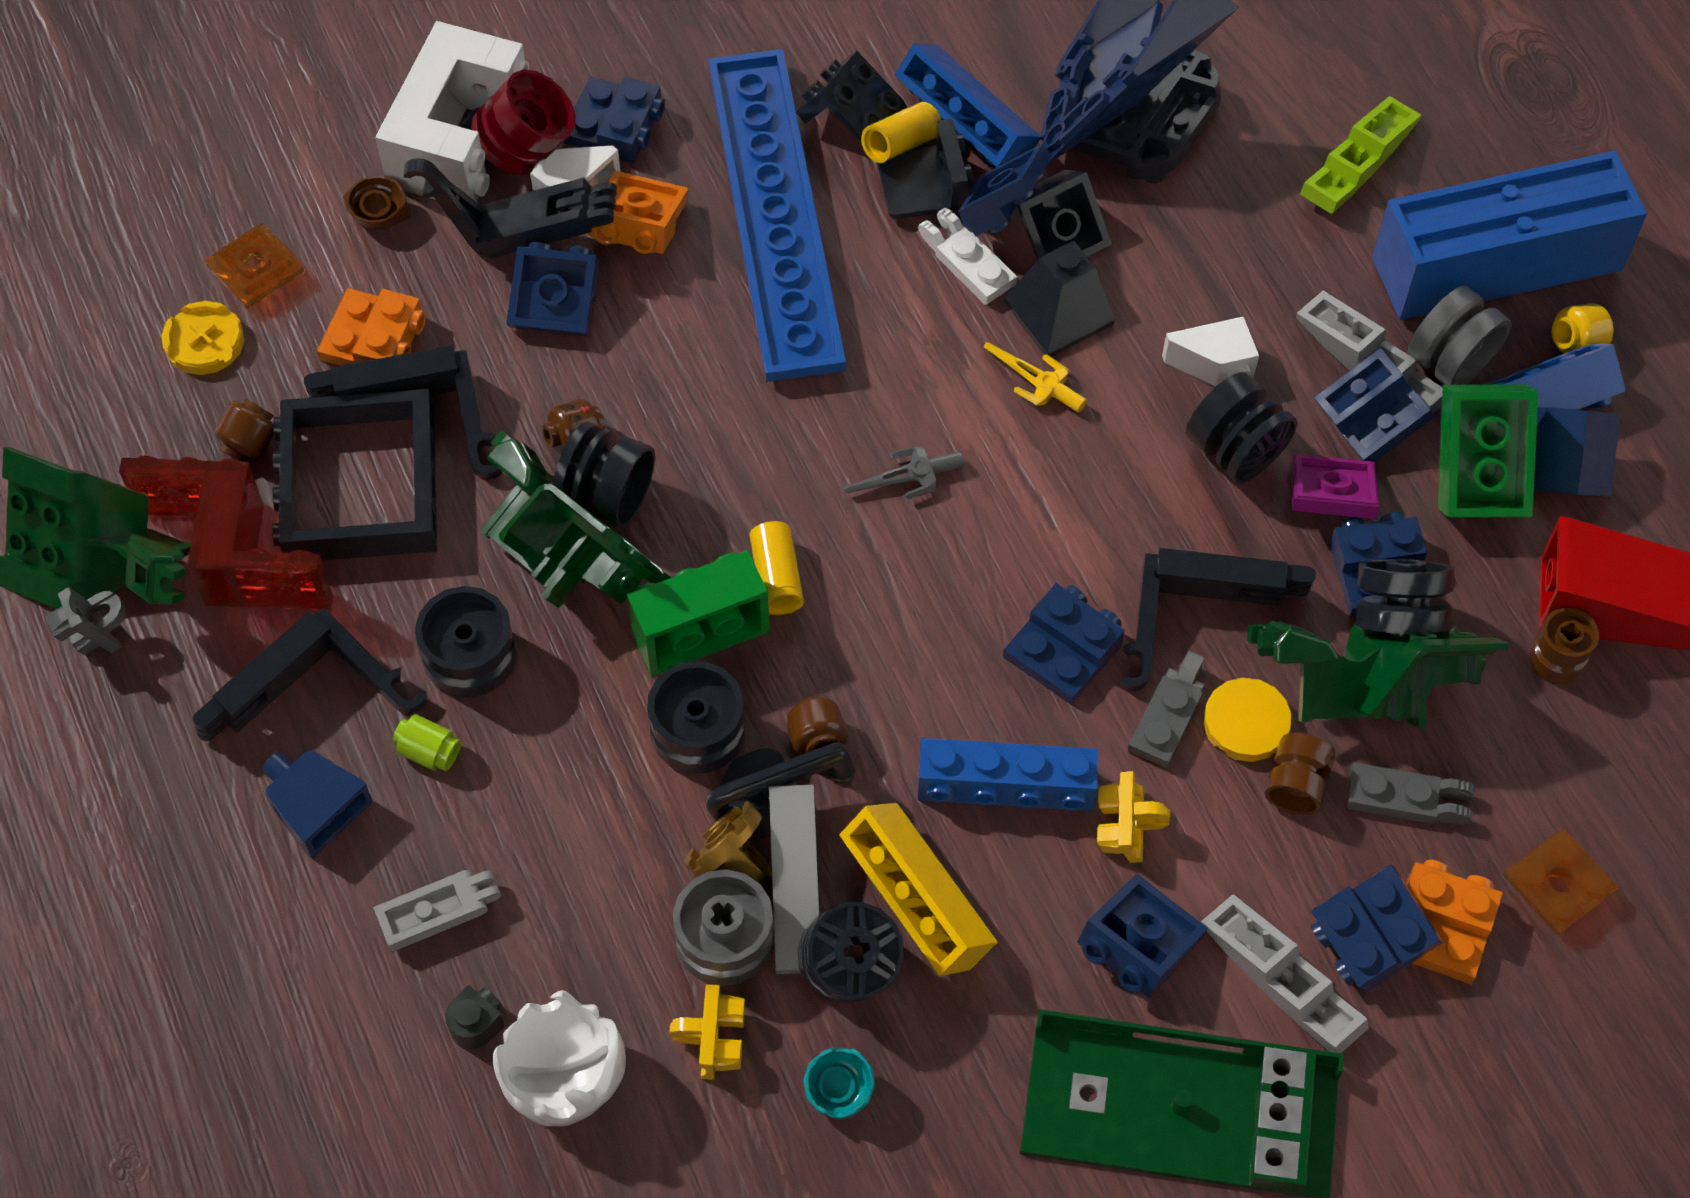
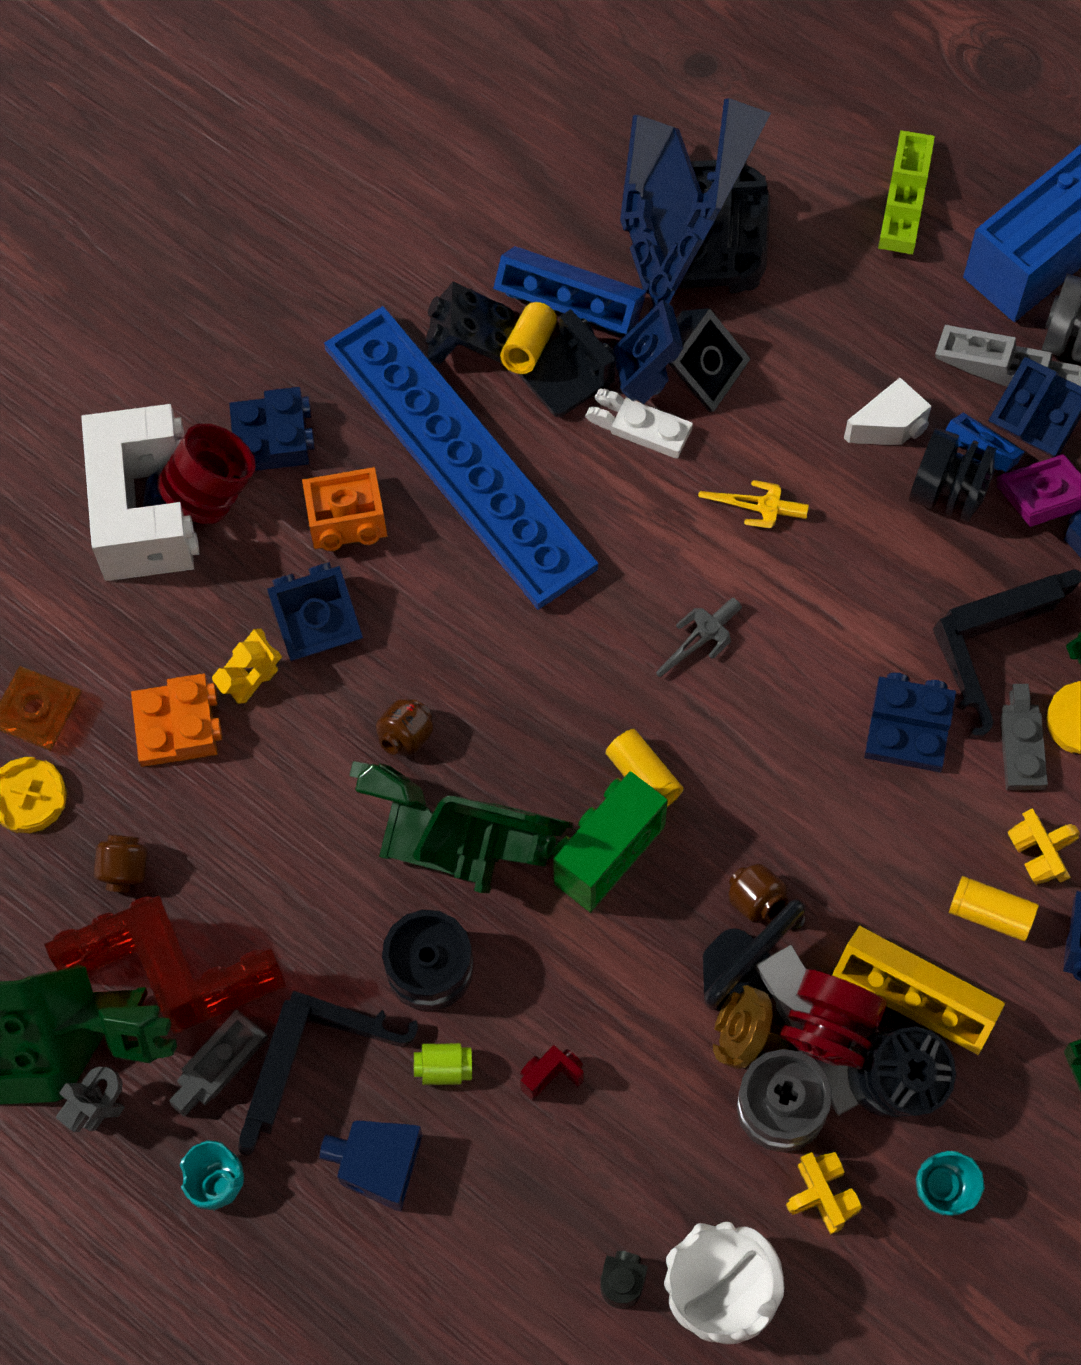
camera: 25 degrees left, 5 degrees up
(156, 739) = (211, 1175): none -> teal hair
(222, 644) = (217, 1062): none -> dark grey hinge
(359, 540) = (276, 916): black window -> none
(377, 202) = (110, 601): reddish brown hat -> none
(432, 369) = (239, 747): black hinge -> none
(435, 907) = (534, 1203): light grey hinge -> none
(446, 315) = (253, 653): none -> yellow hips
(518, 792) = (541, 1071): none -> dark red bracket
(526, 218) = (255, 558): black hinge -> none
(569, 164) = (269, 502): white slope -> none
(605, 473) = (459, 758): black wheel -> none
(696, 717) = (636, 936): black wheel -> none
(804, 864) = (833, 1019): none -> dark red wheel
(1008, 774) = (931, 858): blue brick -> none
(1042, 850) = (993, 908): none -> yellow pin
(1060, 300) = (740, 428): black slope -> none
(1310, 431) = (970, 429): none -> blue plate

